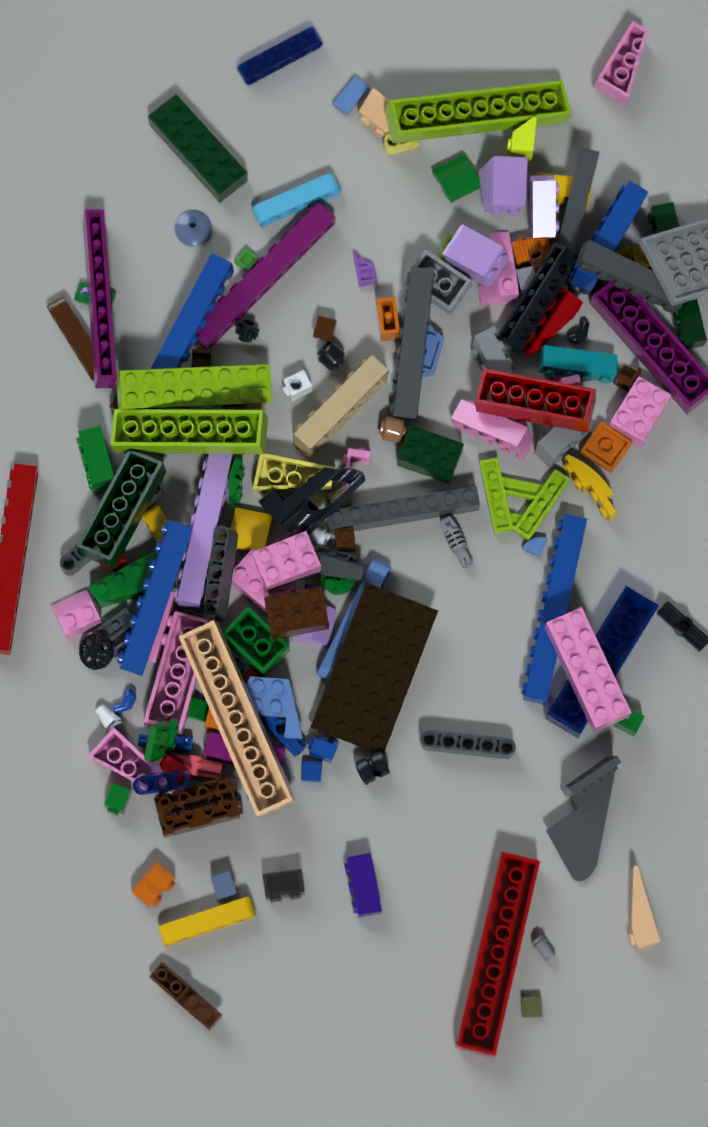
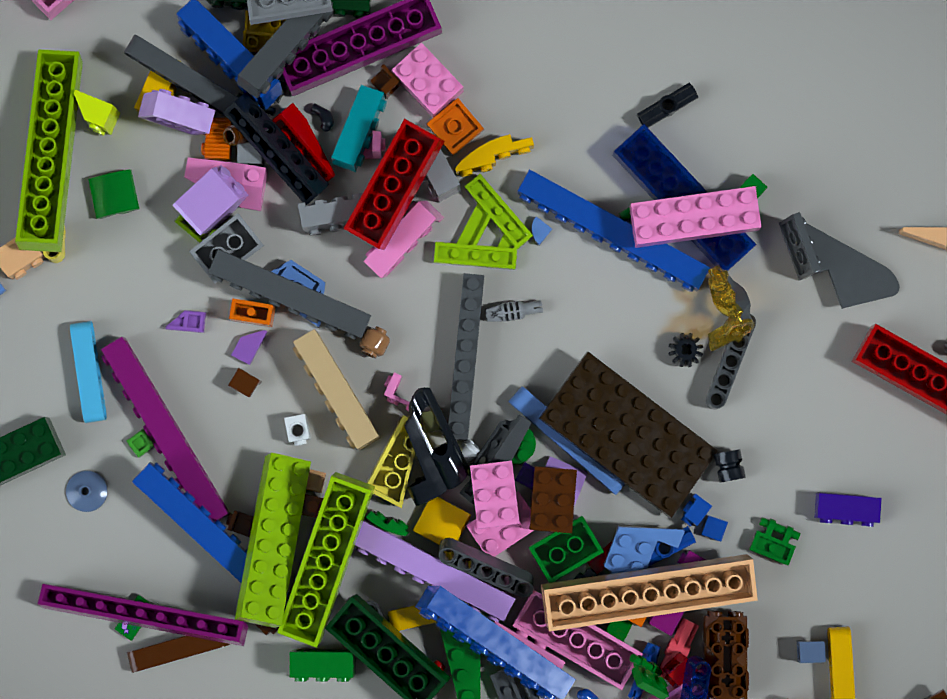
camera: 65 degrees left, 10 degrees up
(247, 331) = (222, 465): black gear -> none
(283, 885) = (825, 590): clear smoke brick -> none
(309, 826) = (772, 547): none -> green plate
(331, 356) = (275, 384): black head -> none
(345, 539) = (480, 426): reddish brown brick -> none
(357, 326) = (248, 346): none -> medium lavender tile
(430, 454) = (412, 310): dark green brick -> none
(463, 695) = (678, 350): none -> black gear
(504, 184) = (139, 147): lavender slope -> none
(522, 724) = (732, 302): none -> clear yellow hips

